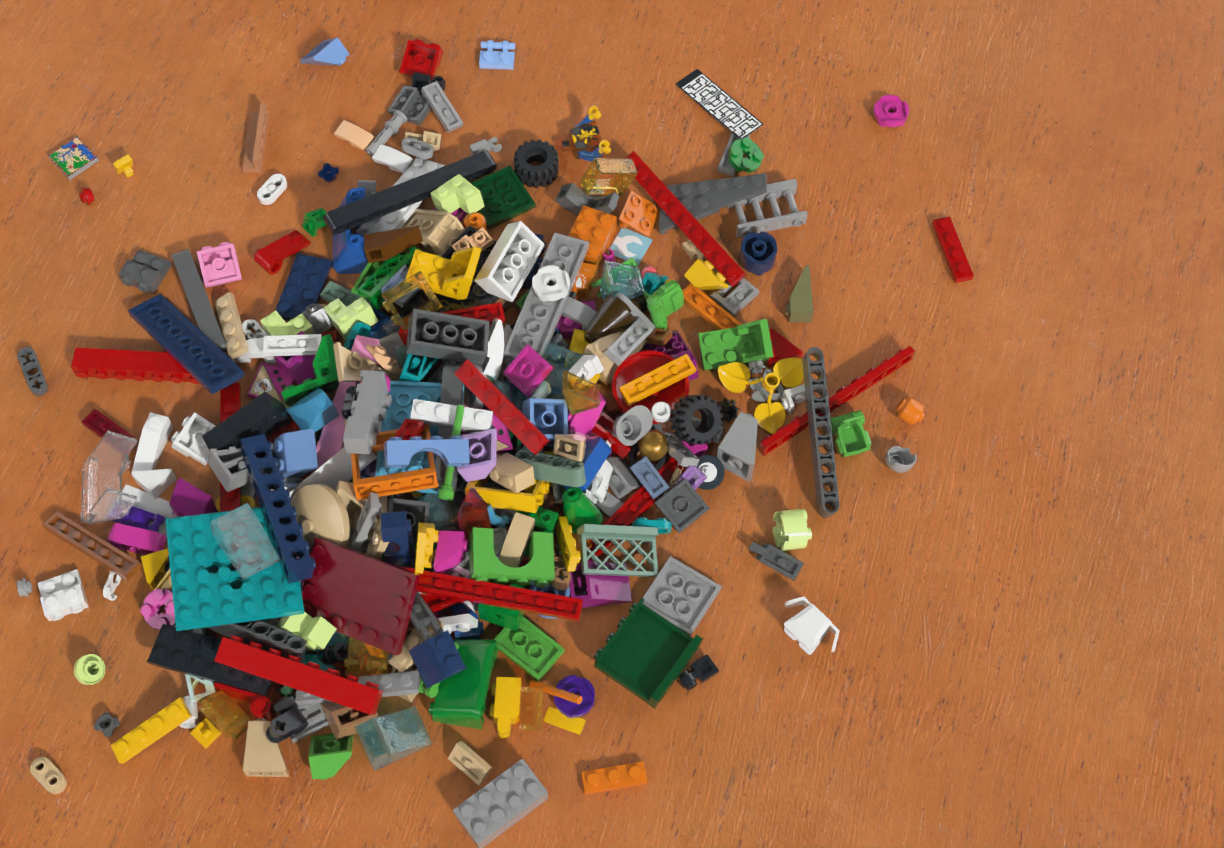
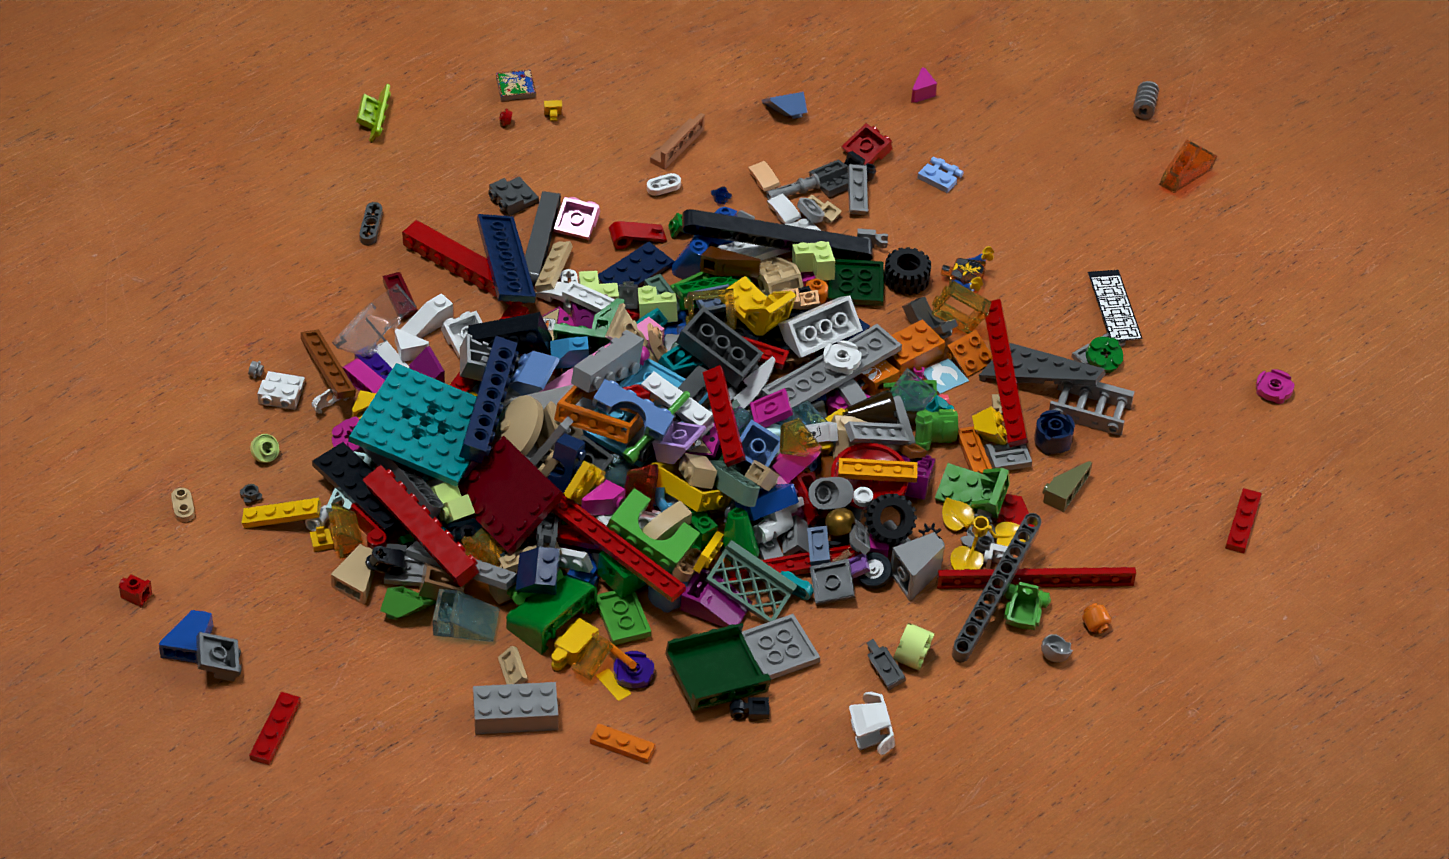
camera: 30 degrees right, 15 degrees down
(244, 541) = (445, 406): clear slope -> none

